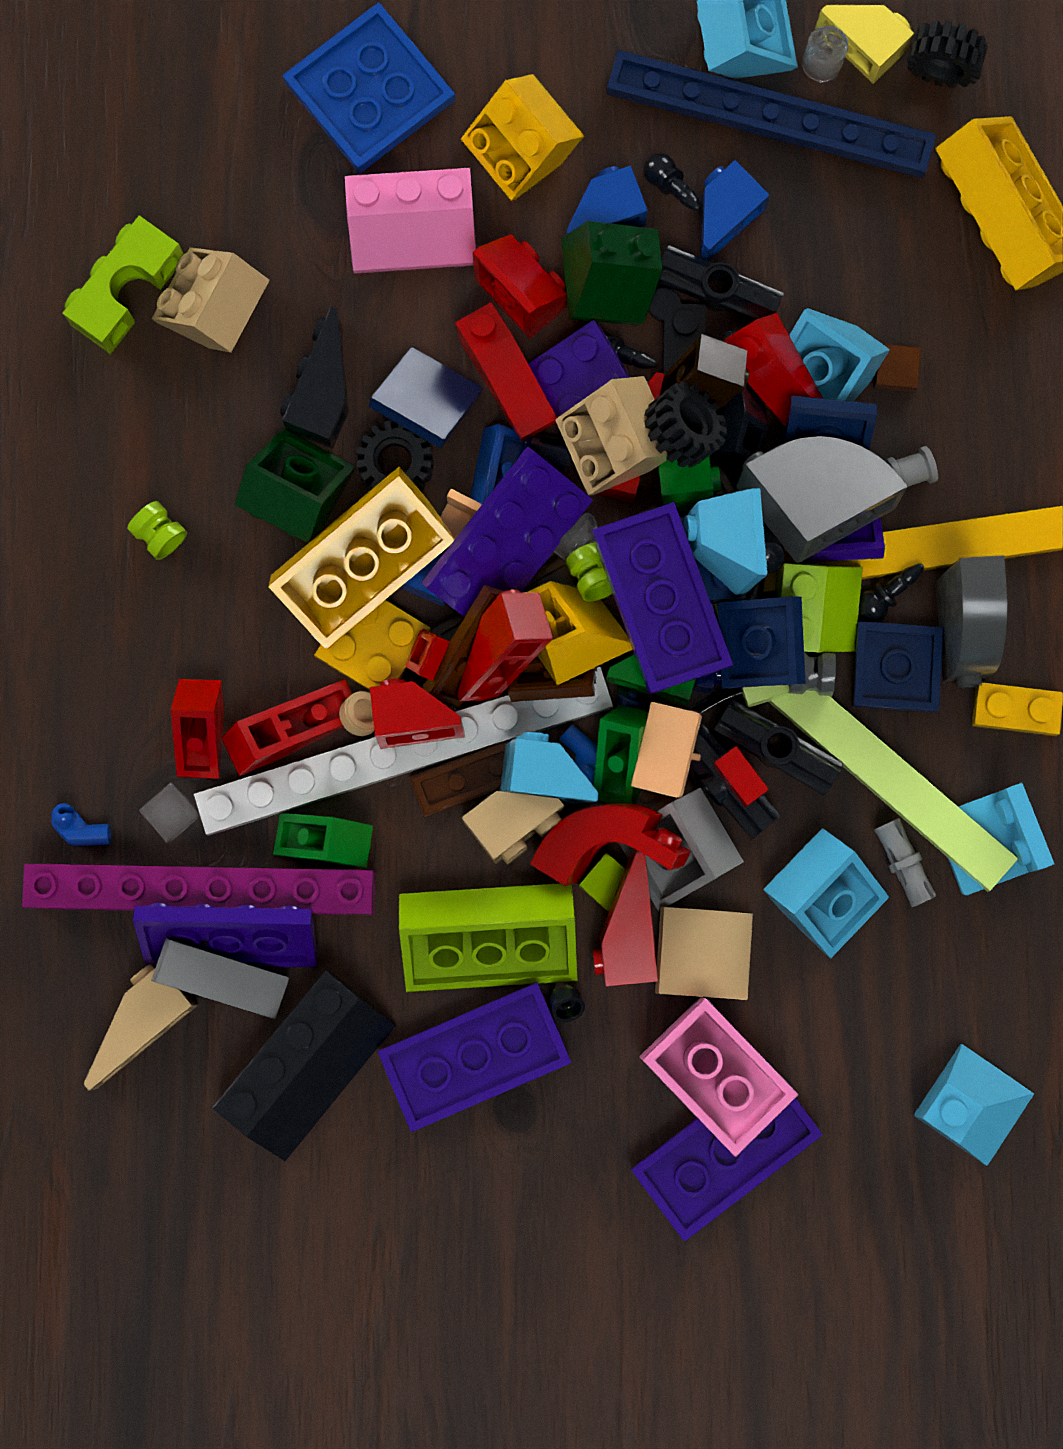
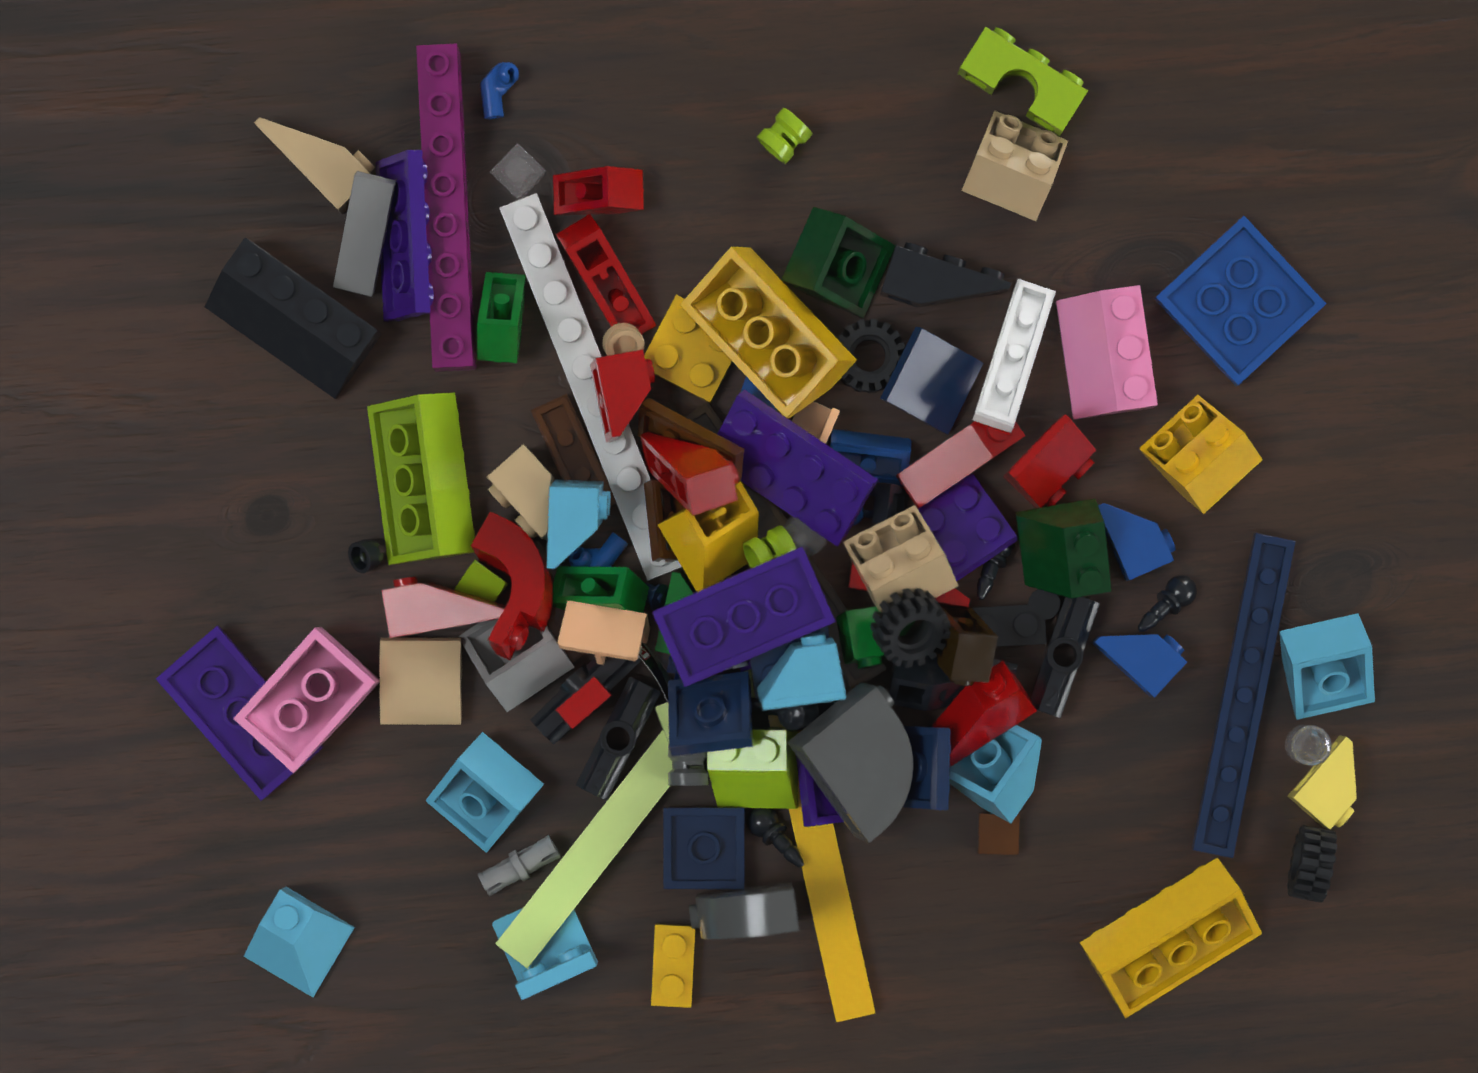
camera: 85 degrees right, 5 degrees up
(408, 309) = (1014, 355): none -> white tile
(427, 654) = (681, 401): red tile -> none
(474, 1057) = (310, 474): dark purple plate -> none
(916, 467) = (896, 851): light grey bush -> none

